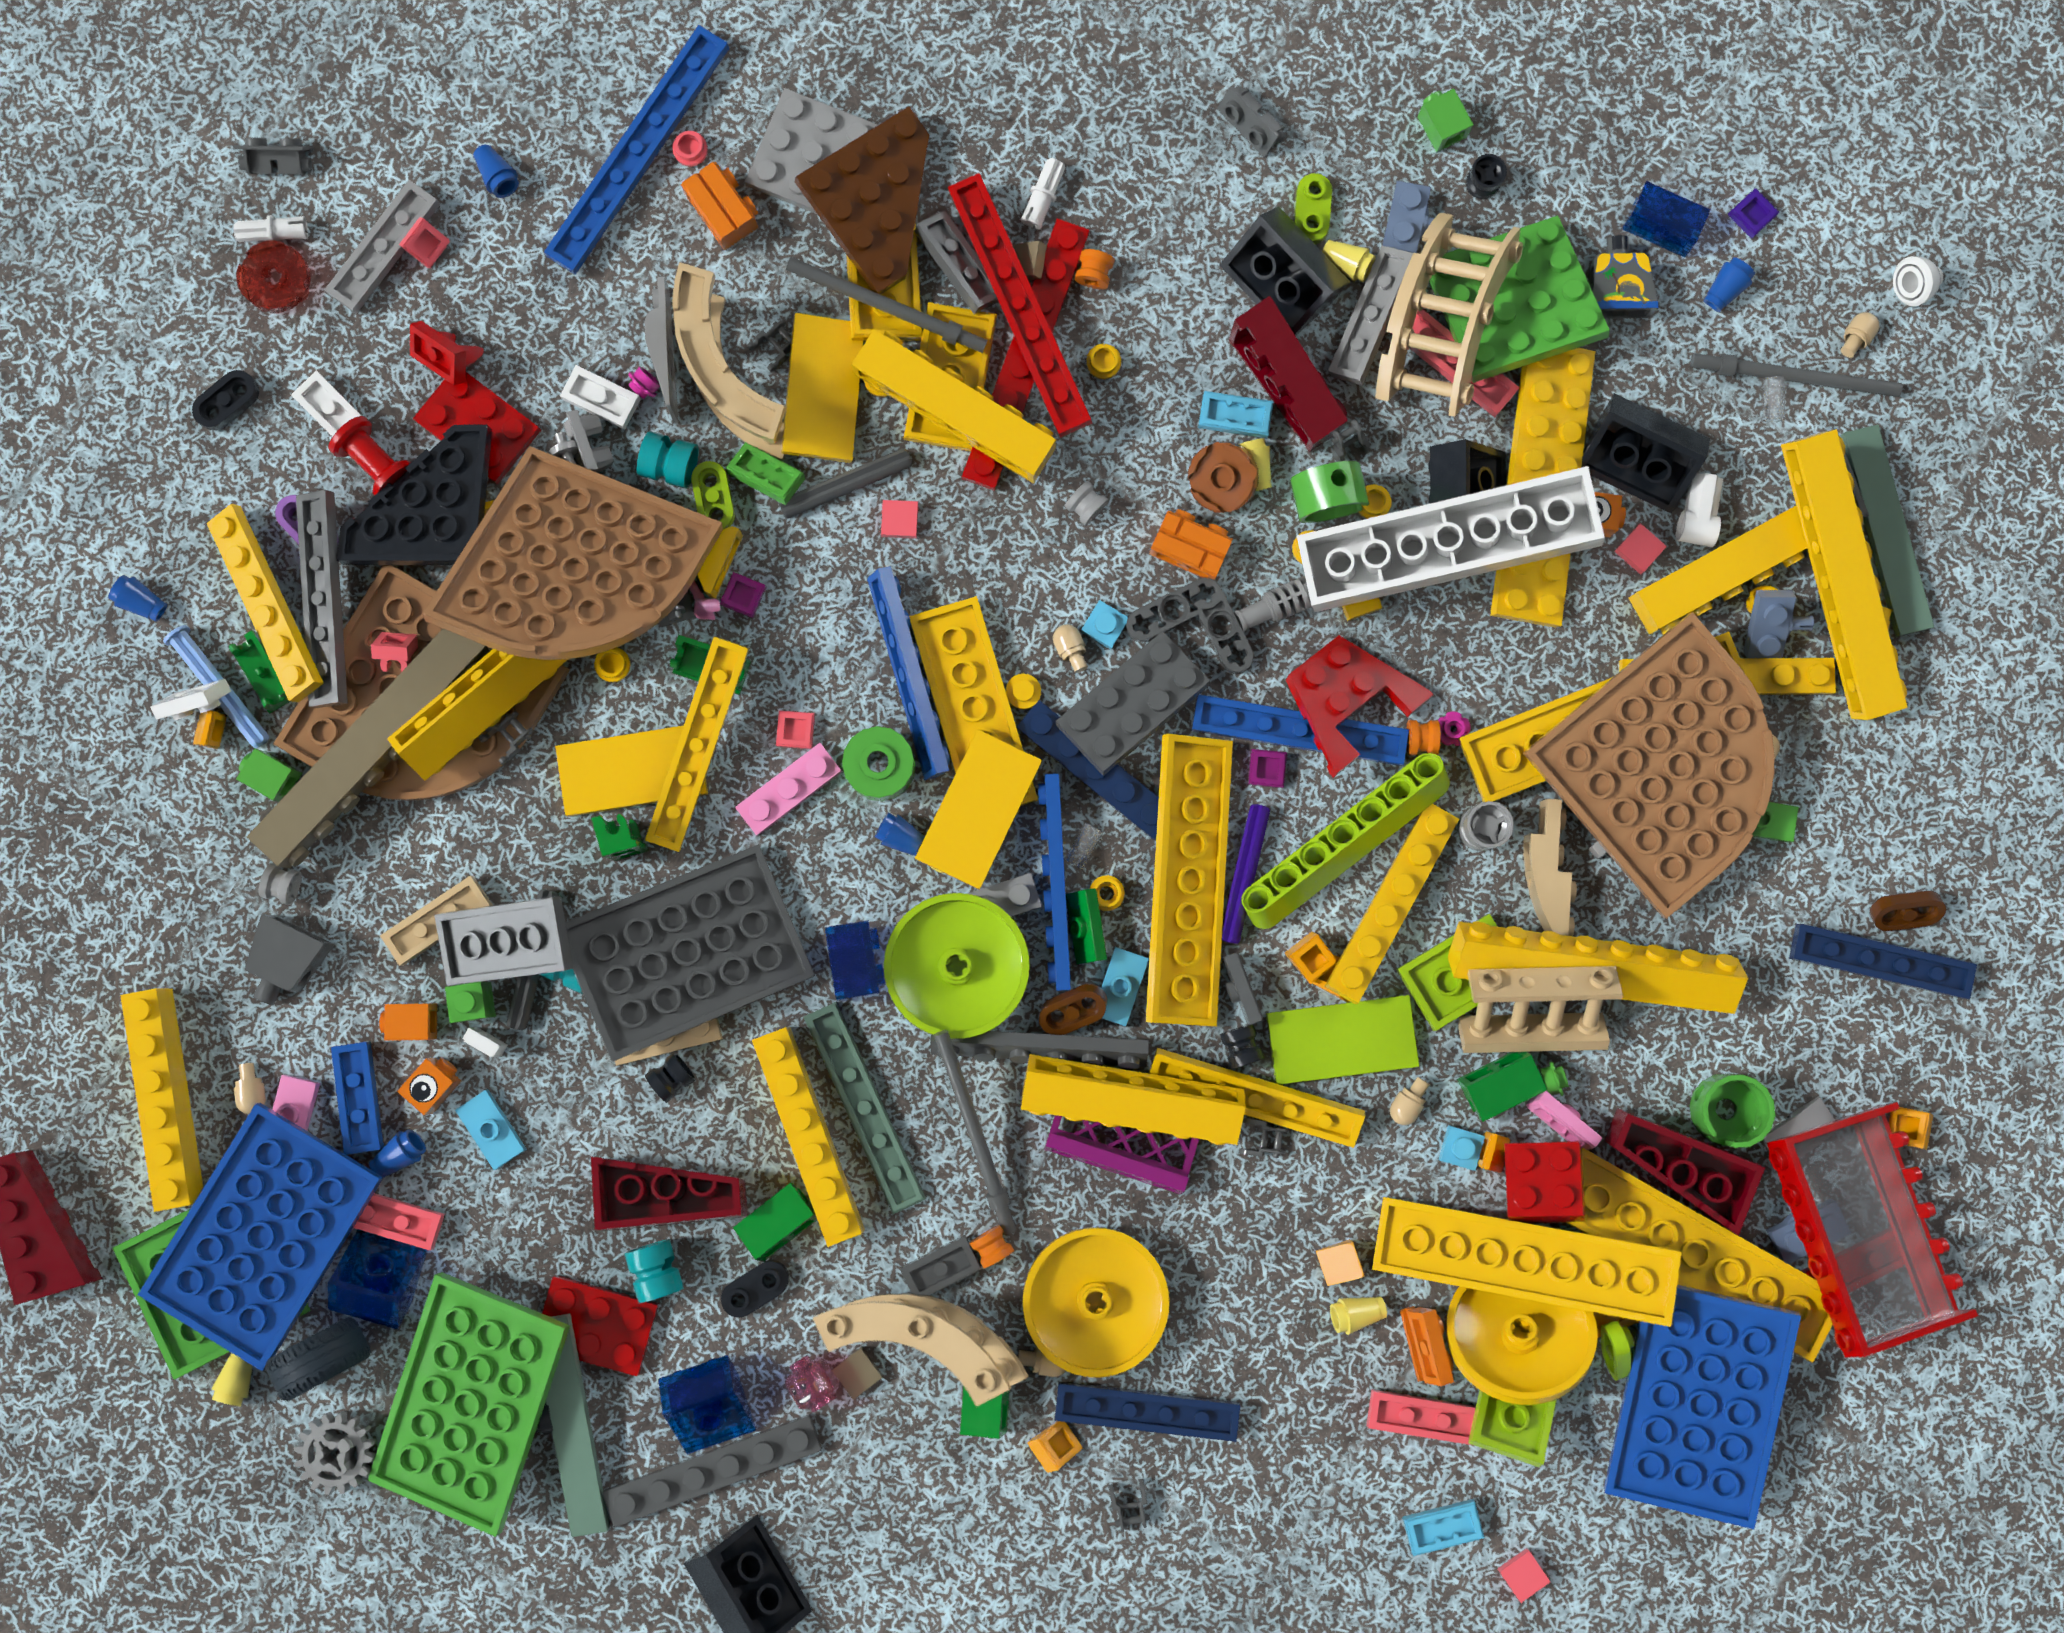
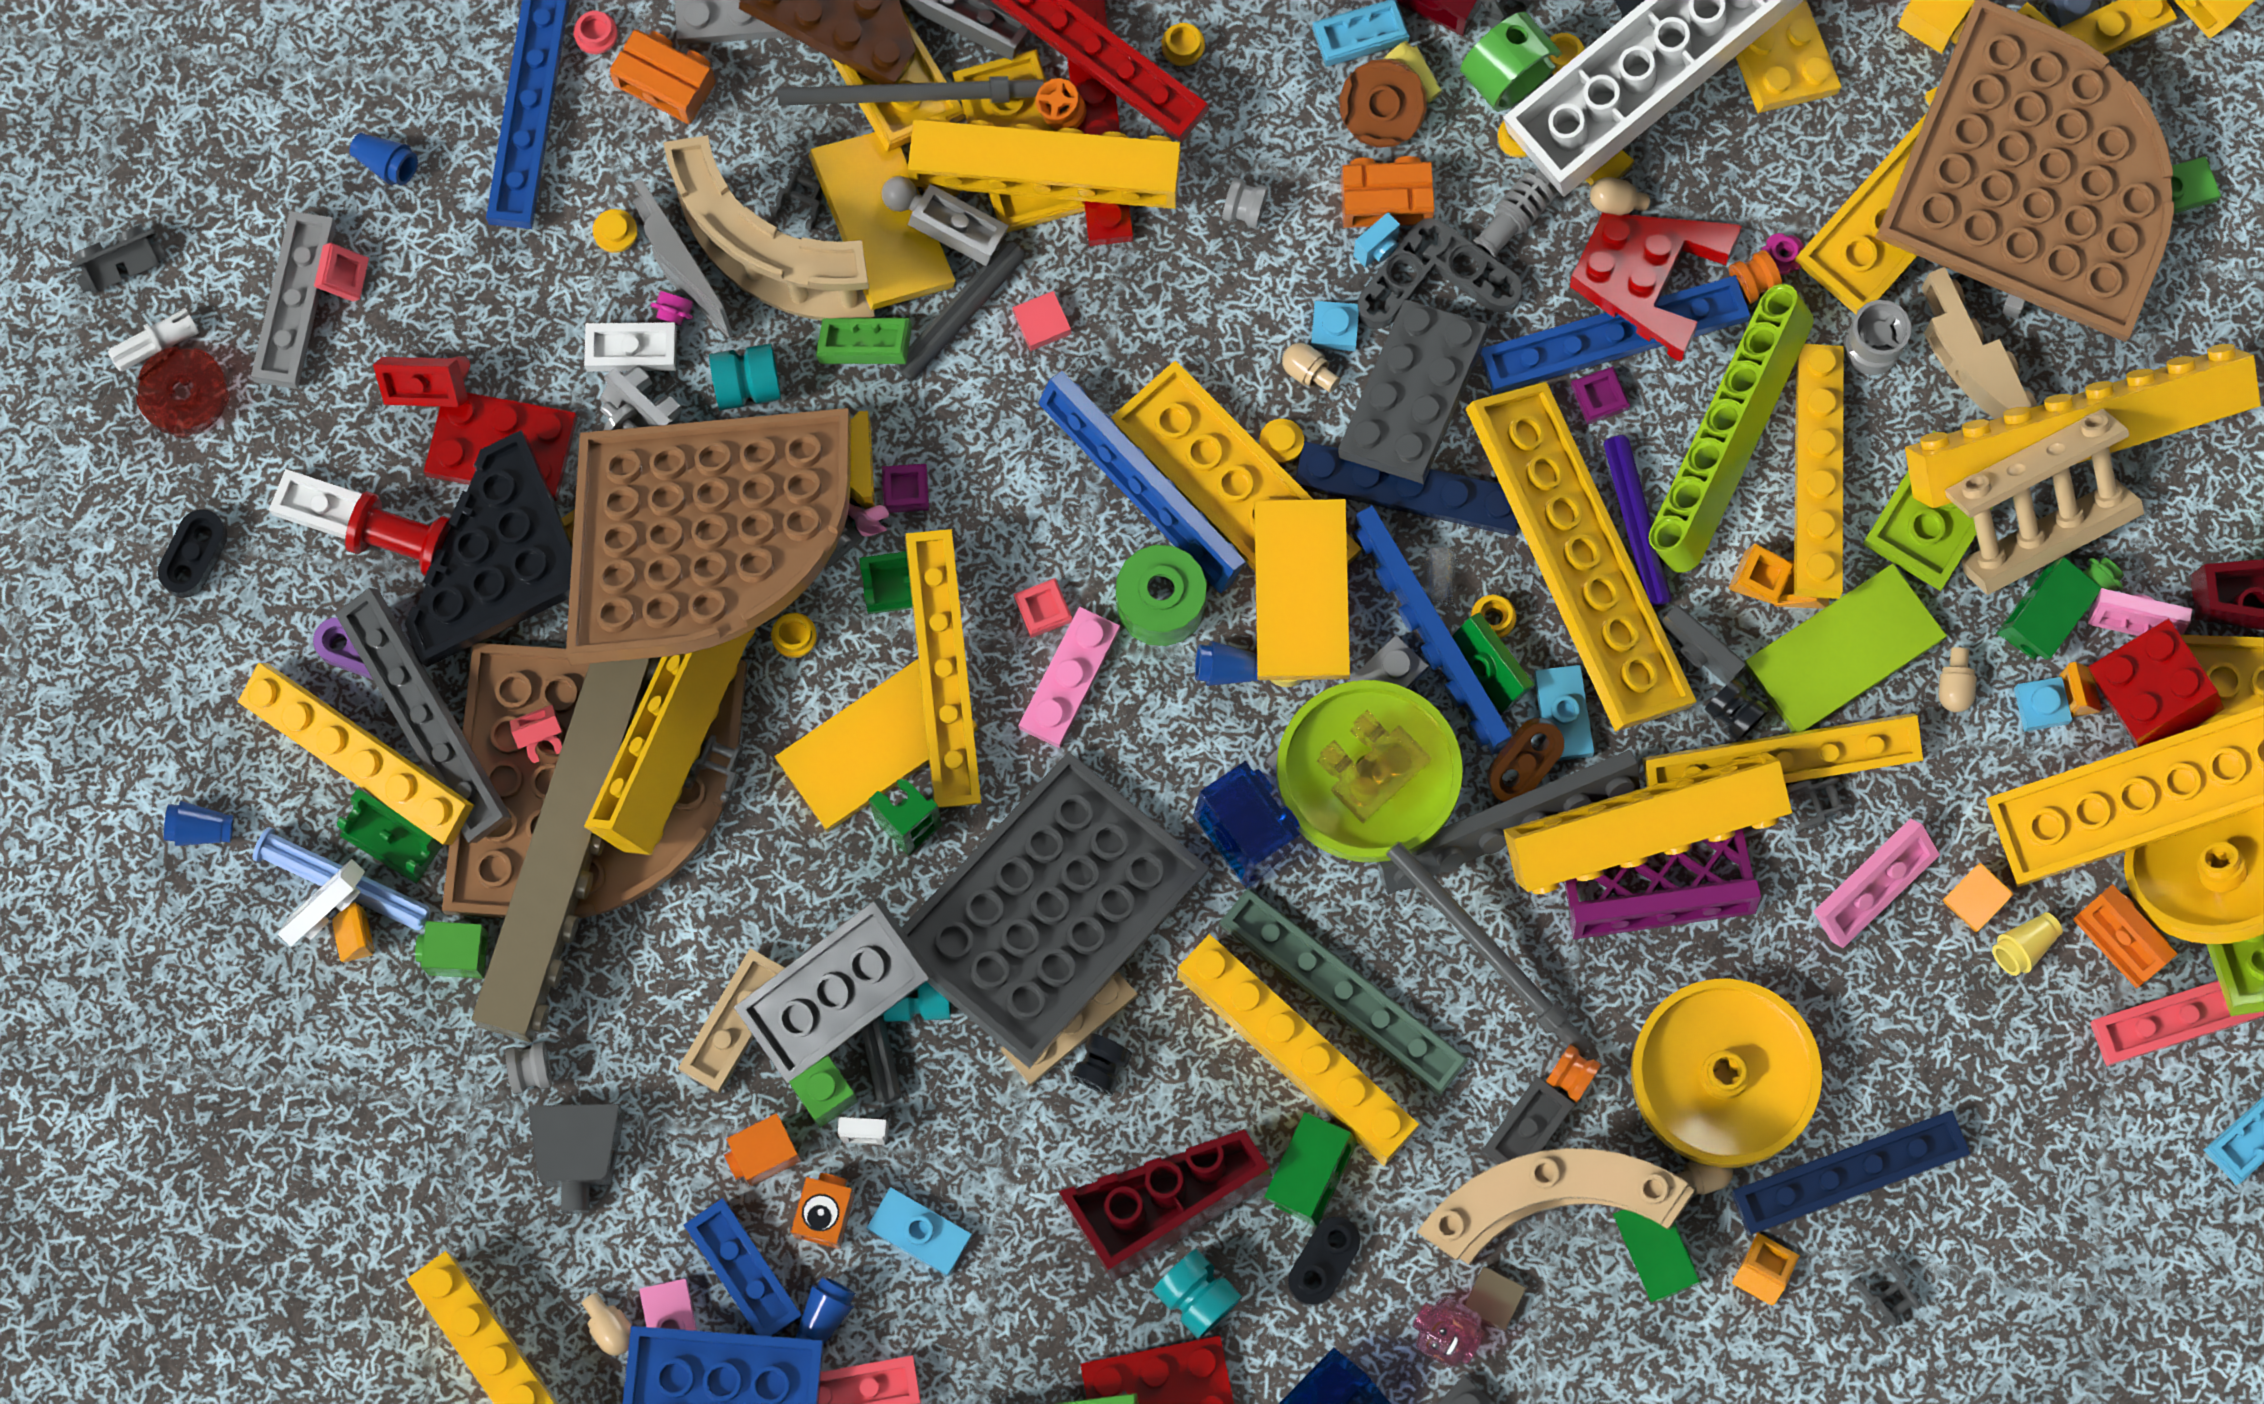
camera: 25 degrees left, 10 degrees down
(631, 305) = (615, 230): none -> yellow plate
(715, 497) = (820, 394): lime plate -> none
(866, 412) = (946, 218): none -> light grey plate
(959, 976) = (1380, 773): none -> clear yellow plate
(983, 360) = (1054, 96): none -> orange wheel
(1166, 578) = (1377, 241): none -> medium azure plate
(1274, 1218) = (1876, 883): none -> bright pink plate
(1355, 629) = (1617, 196): none -> tan cylinder

